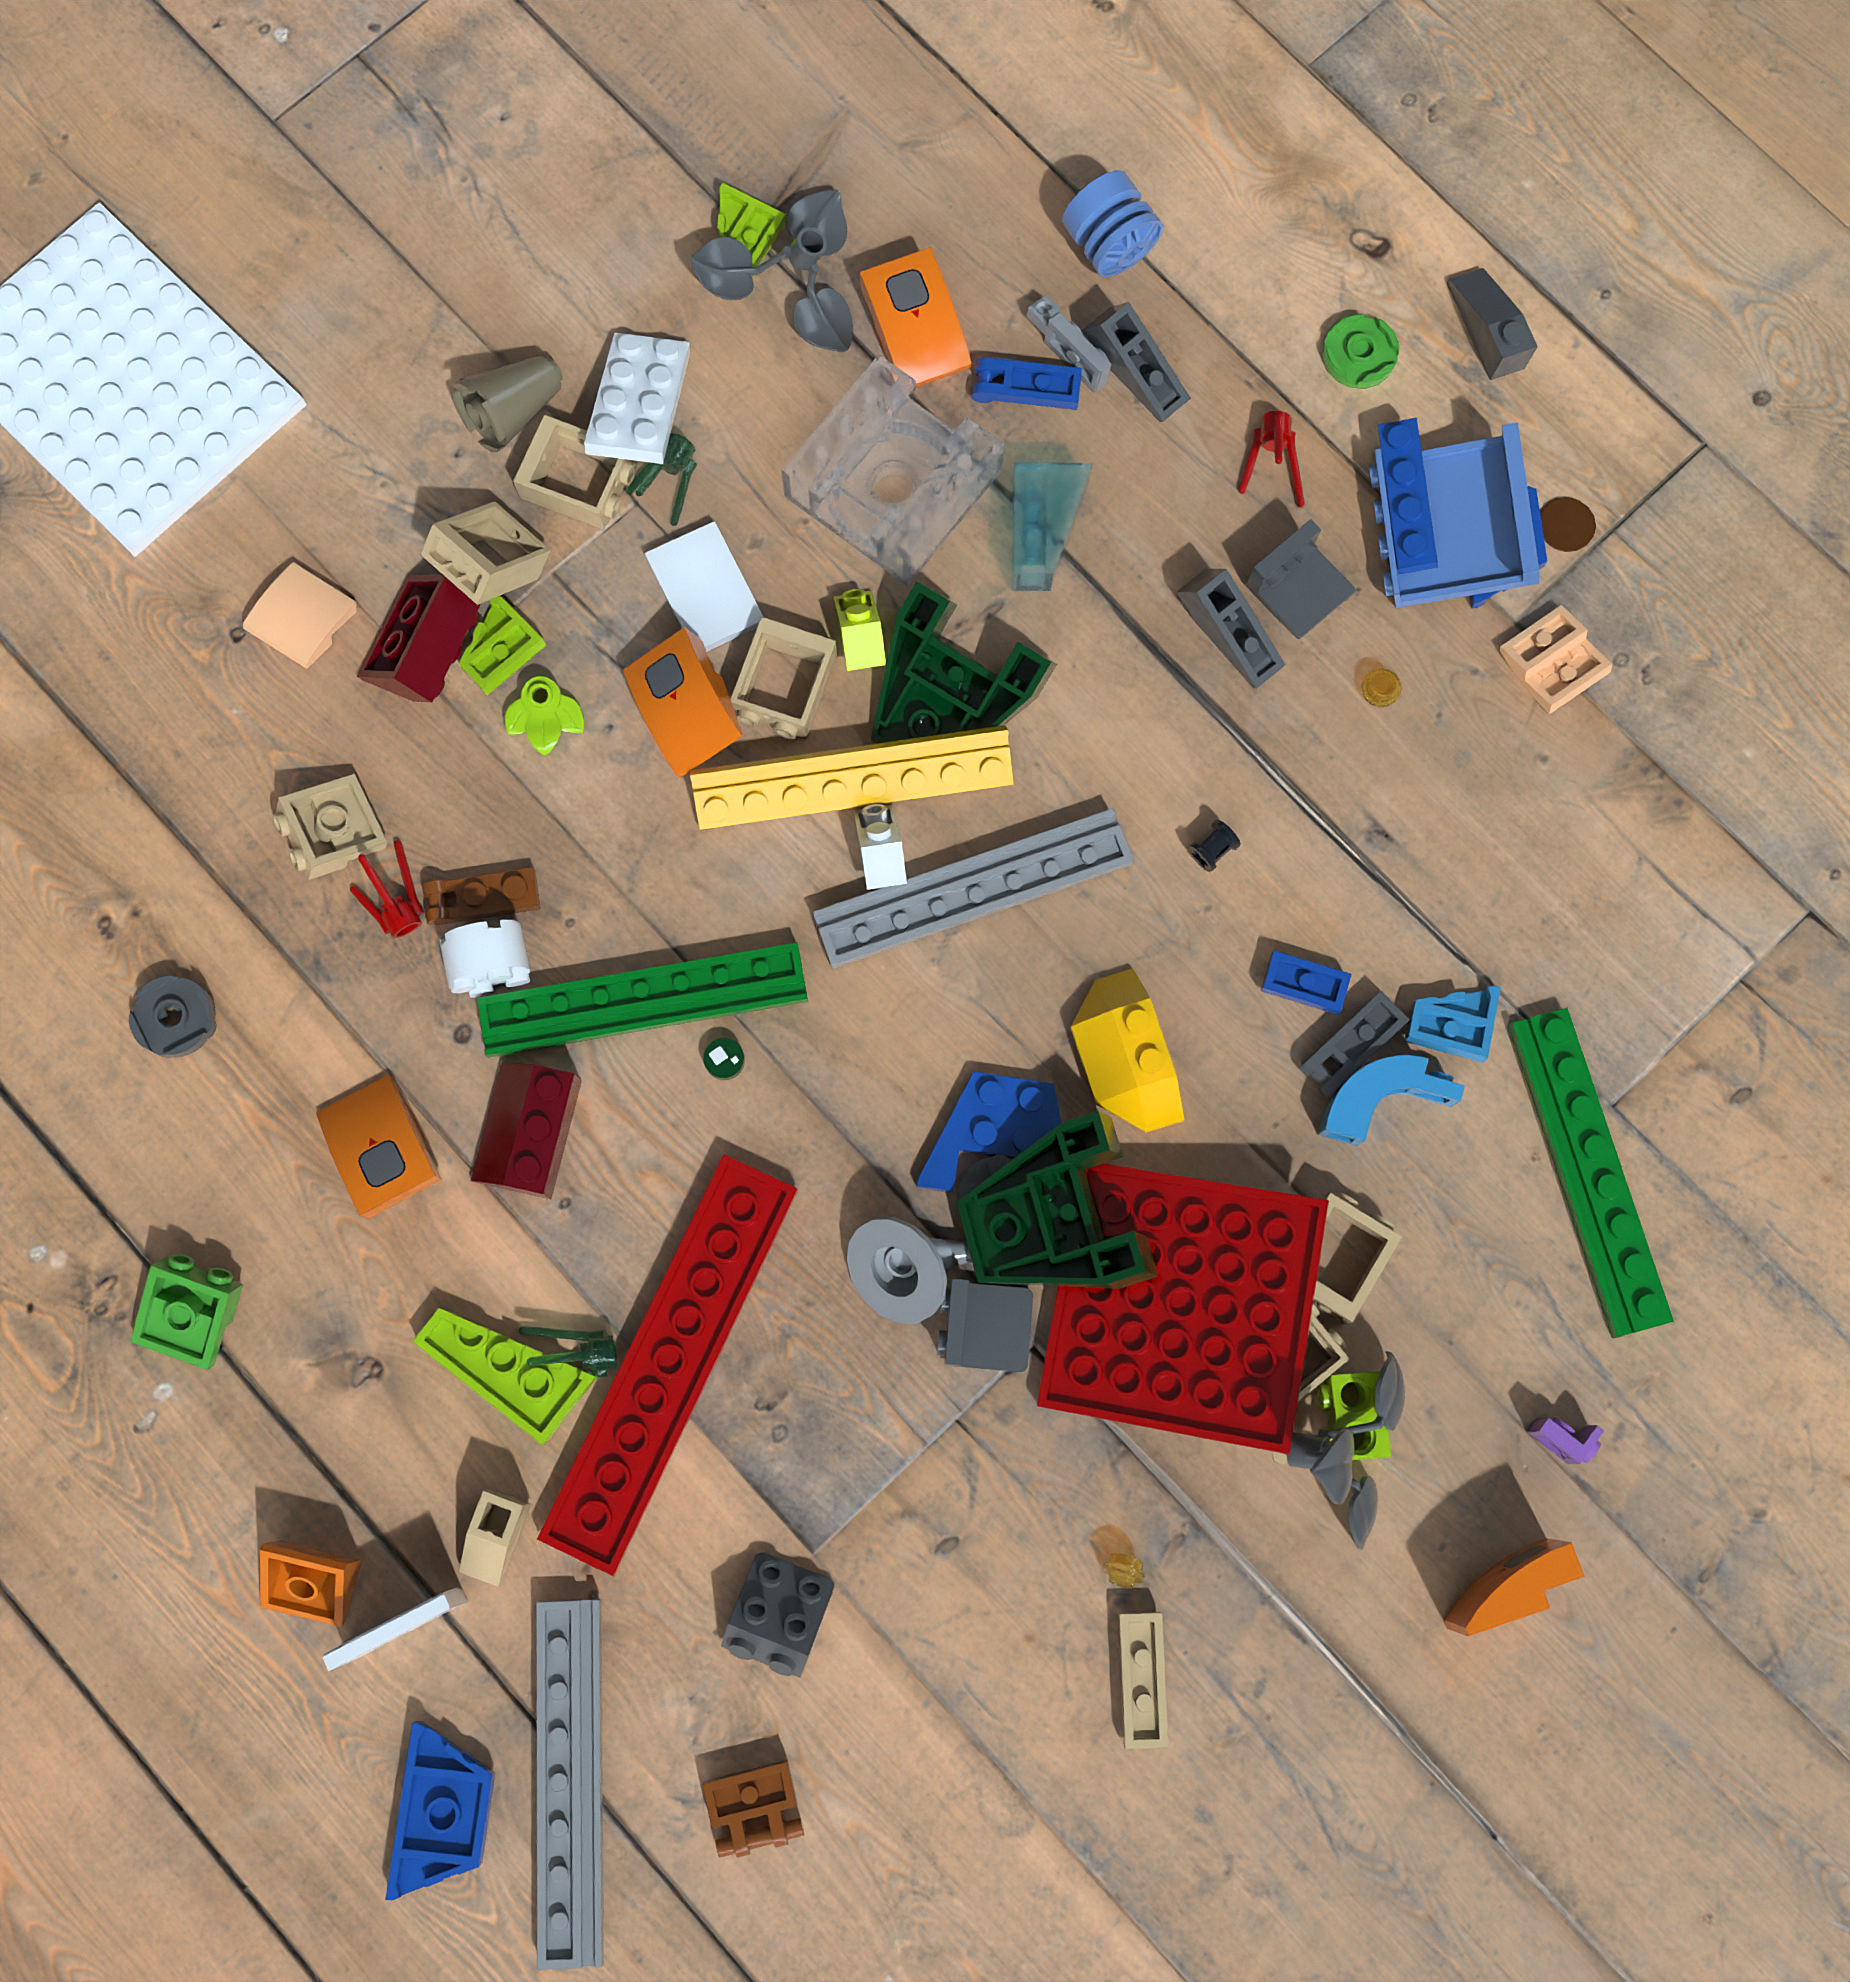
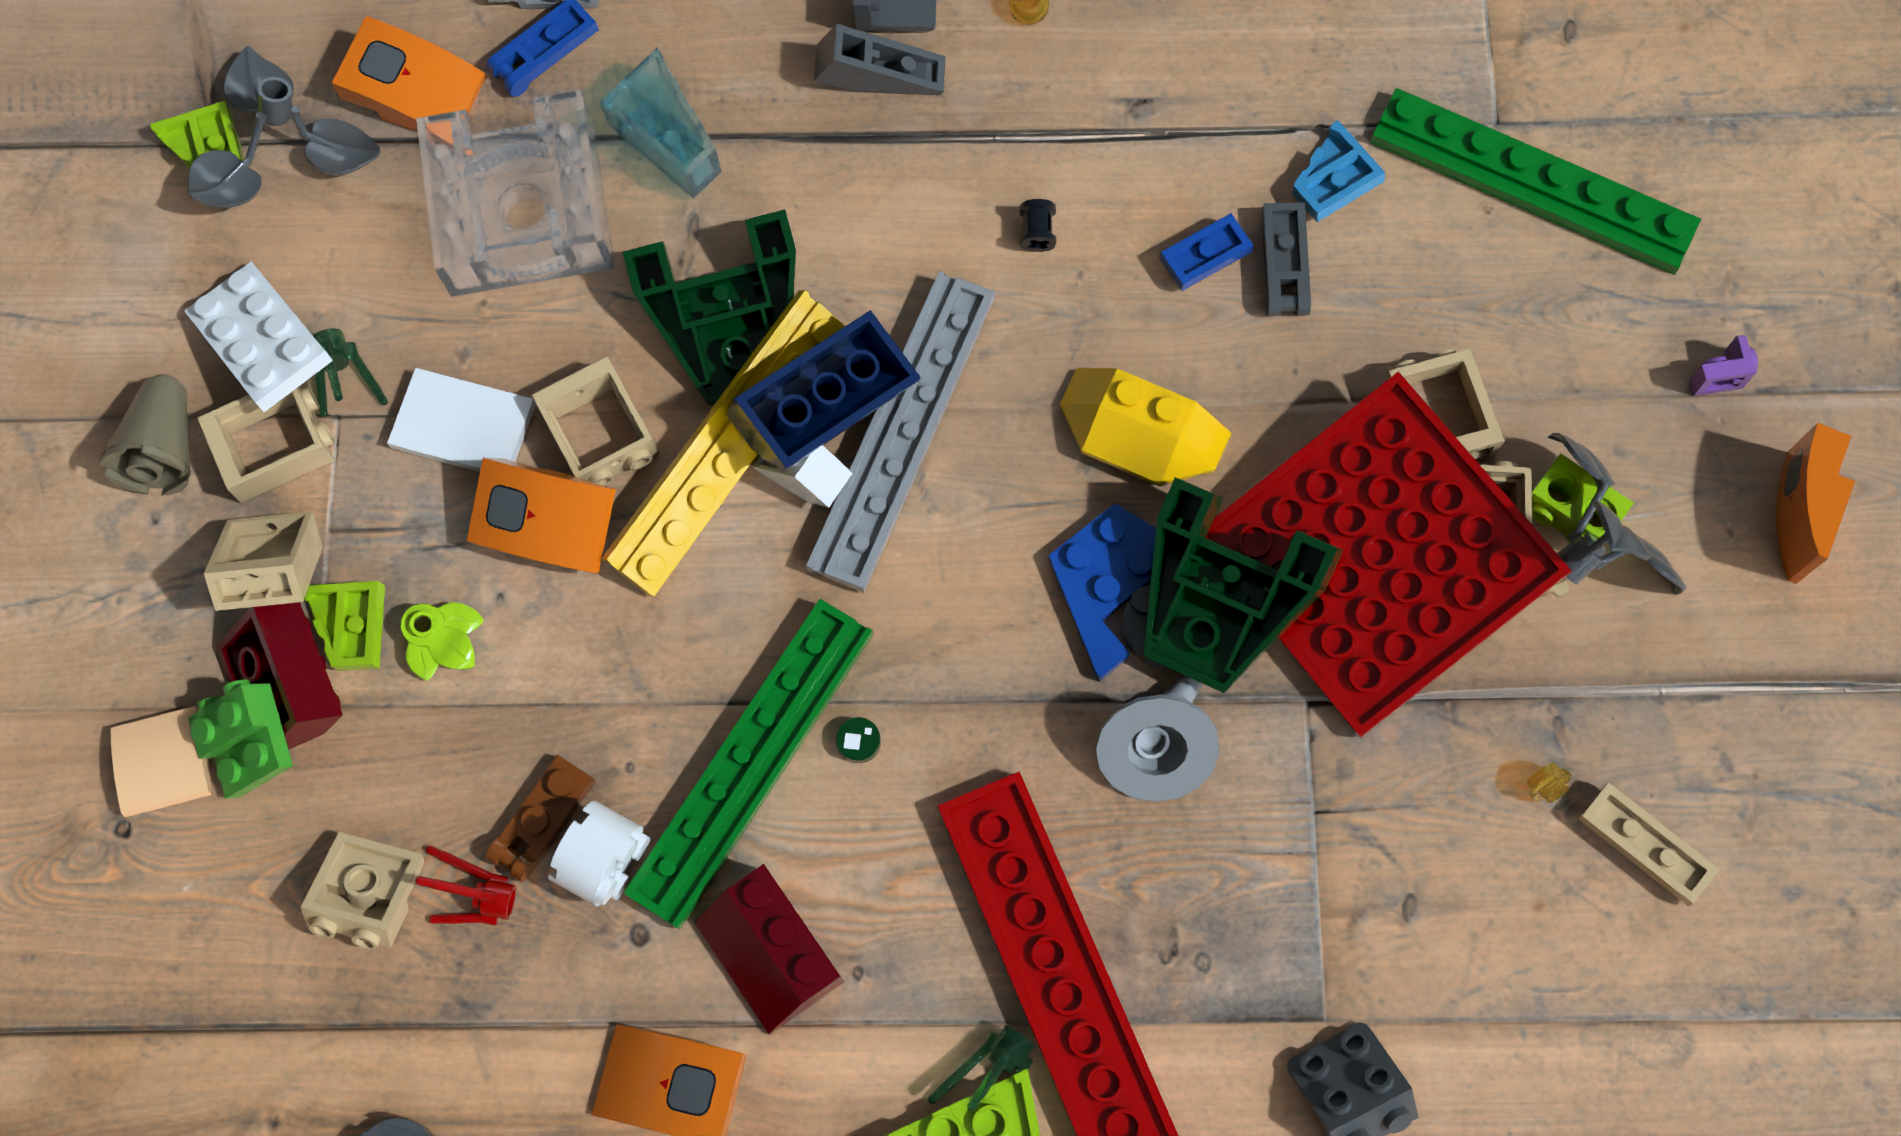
camera: 40 degrees left, 5 degrees down
(360, 651) = (241, 736): none -> bright green plate
(860, 629) = (614, 333): neon yellow slope -> none
(941, 812) = (822, 392): none -> dark blue slope
(986, 1326) = (1263, 721): dark grey bracket -> none
(1353, 1103) = (1335, 303): dark azure arch -> none

